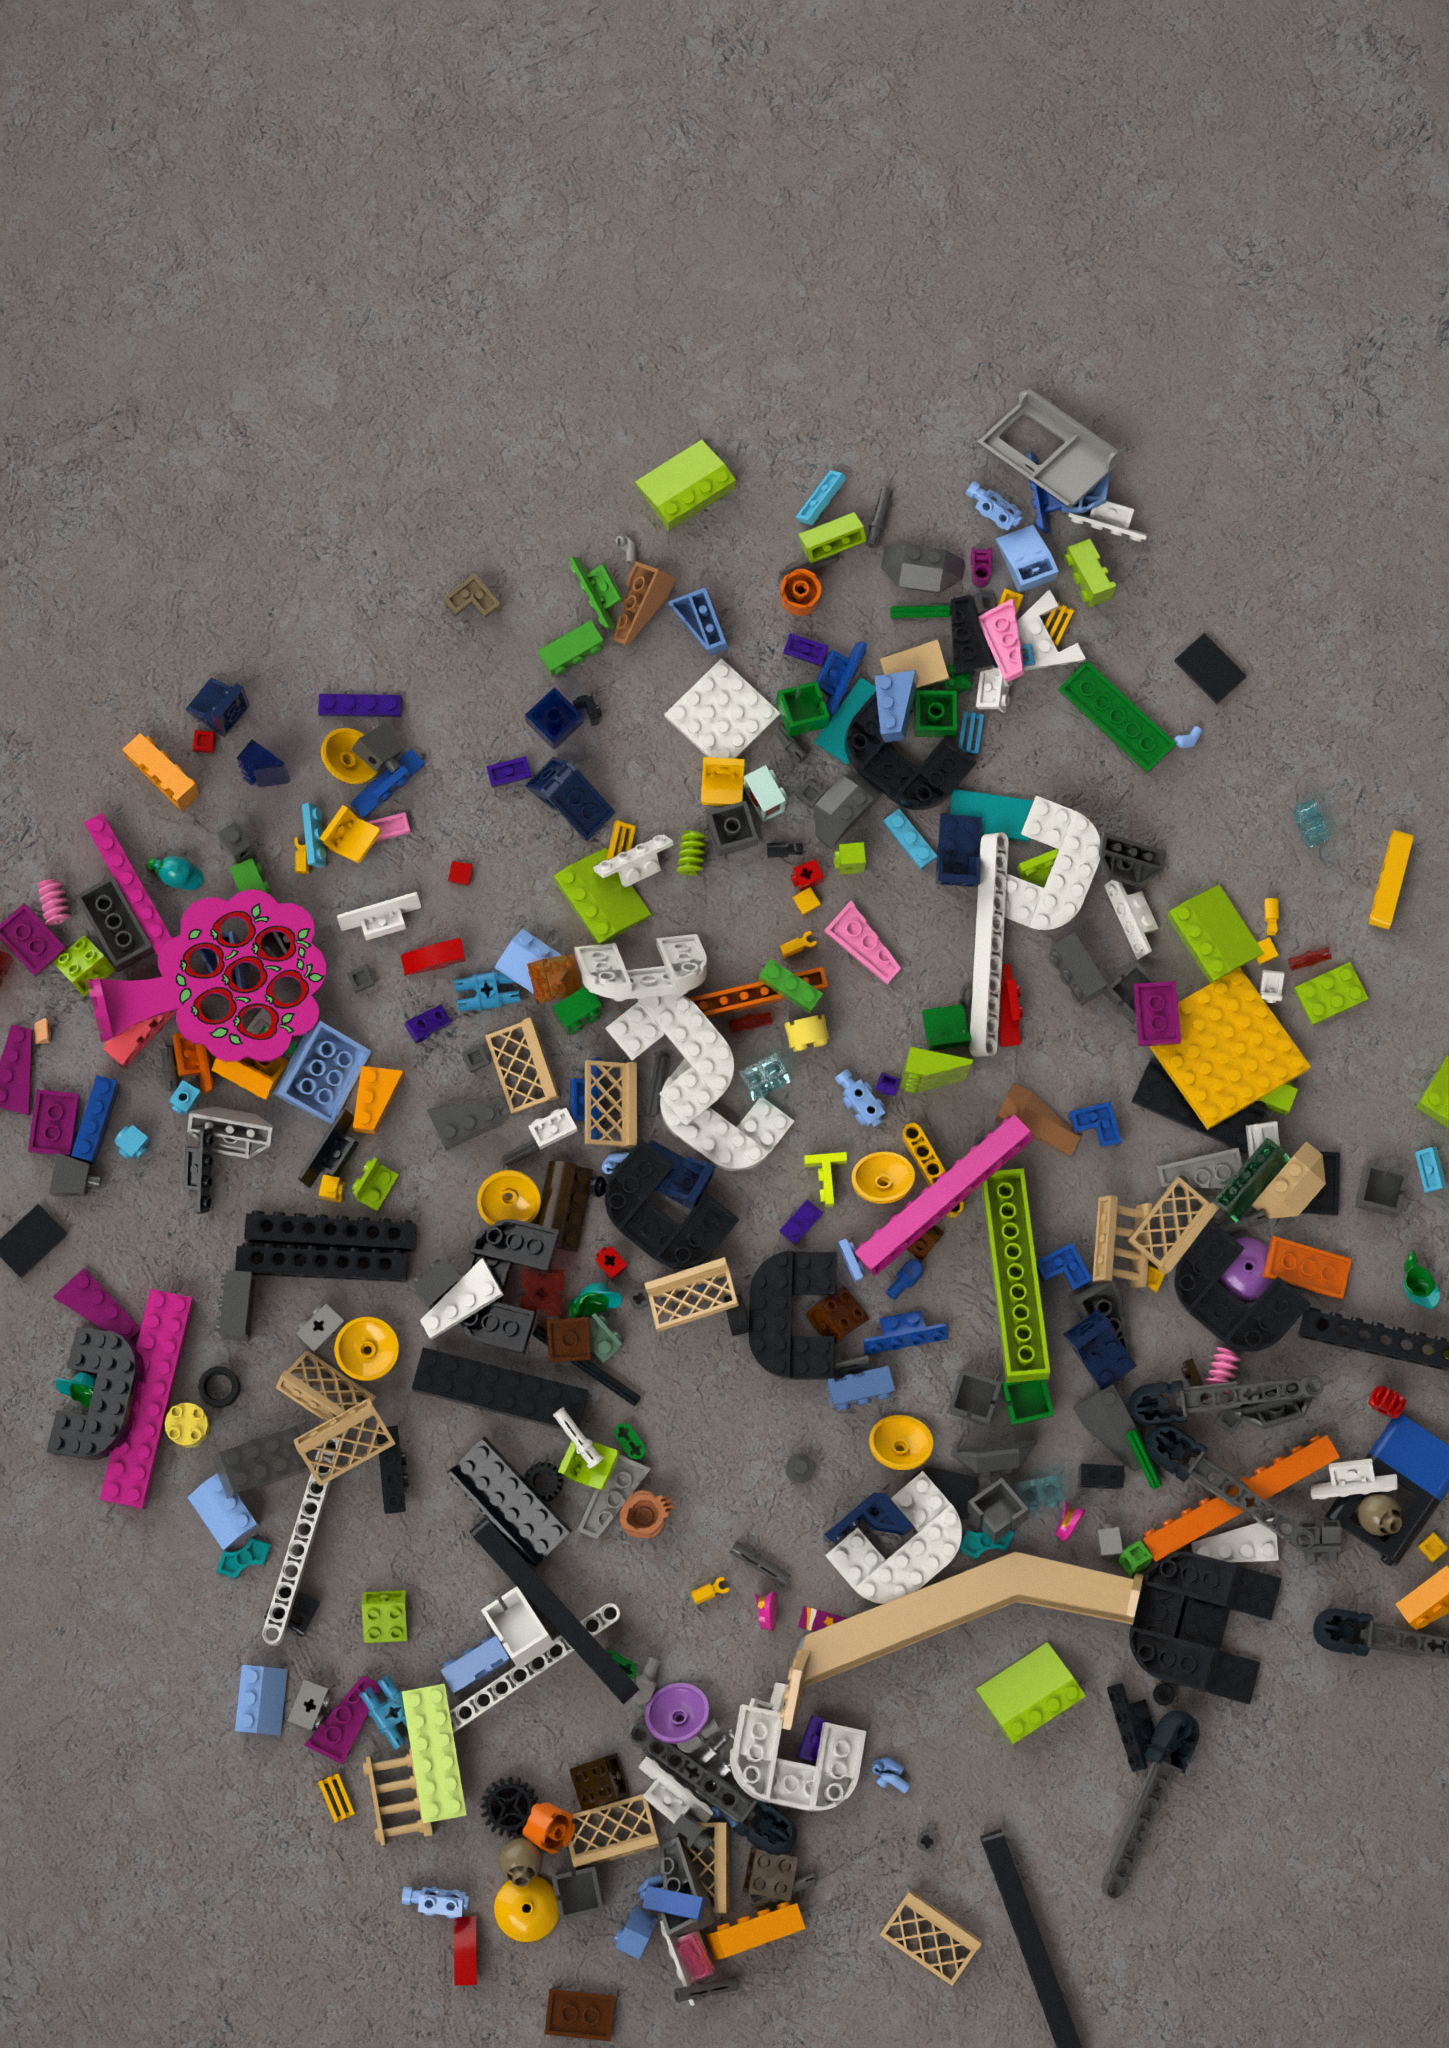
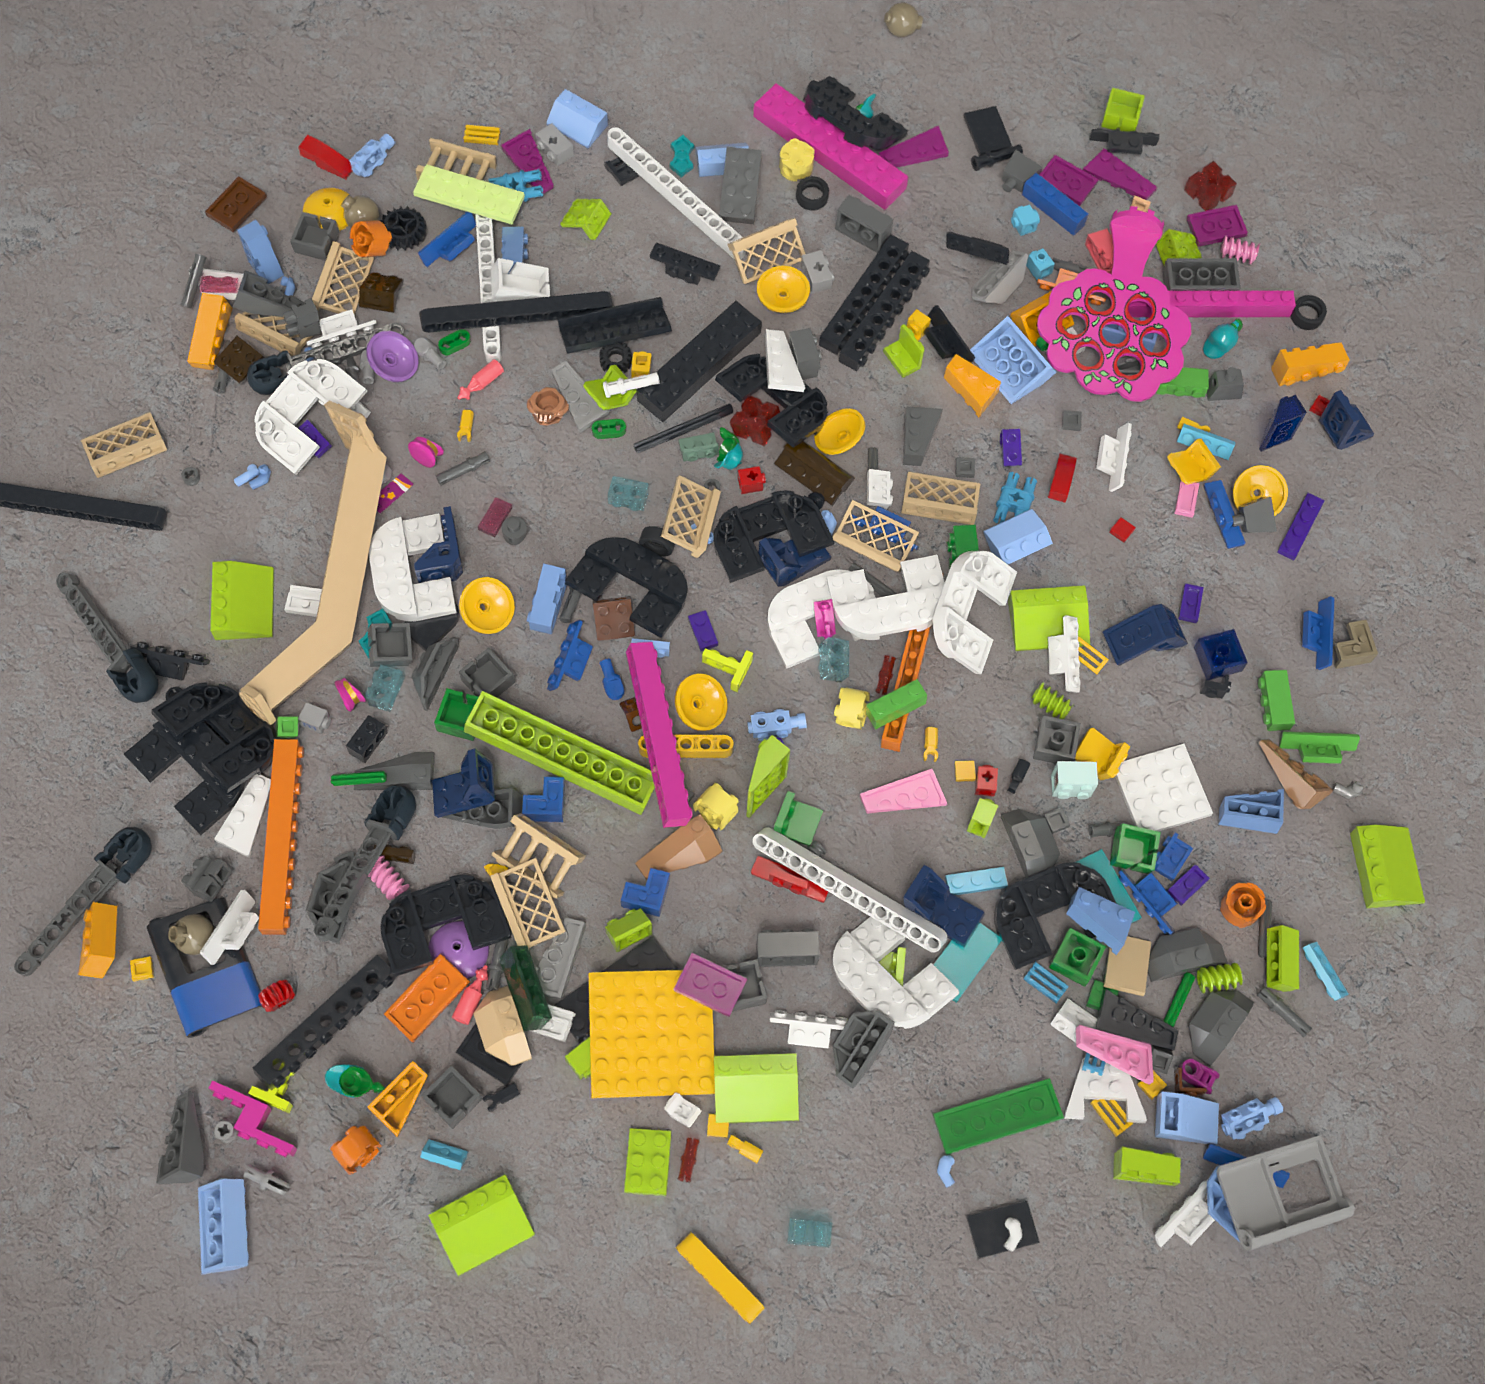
camera: 120 degrees right, 10 degrees down
(69, 1218) = (988, 158): none -> black pin
(87, 786) = (1305, 323): none -> black tyre
(332, 1429) = (733, 229): tan fence -> none
(473, 639) = (1319, 632): none -> blue bracket
(499, 1741) = (450, 241): none -> blue bracket
(542, 1441) = (641, 364): none -> yellow brick
(554, 978) = (998, 539): clear orange bracket -> none
(569, 1339) = (709, 420): reddish brown plate -> none
(646, 1606) = (482, 379): none -> coral wheel
(674, 1903) = (262, 283): blue tile -> none
(691, 1378) = (629, 489): none -> clear light blue brick
(728, 1106) = (824, 618): none -> dark pink hinge
(786, 674) = (1173, 857): none -> blue bracket
(796, 1497) = (495, 517): none -> clear pink plate
(875, 623) = (1184, 953): none -> dark grey wedge
(880, 585) = (1219, 976): none -> lime piece
(980, 1106) = (716, 806): none -> light yellow brick
(994, 1631) = (303, 600): none -> white plate
(1001, 567) = (1186, 1091): none -> reddish brown bracket
(1141, 1122) = (628, 929): none -> lime slope
(1199, 1469) = (361, 801): dark grey piece -> none
(1210, 654) = (1015, 1233): none -> white arm
(1284, 1229) = (470, 998): none -> coral wheel
(1351, 1150) = (502, 1096): none -> black bar
(1409, 1234) = (399, 1097): none -> light orange wedge

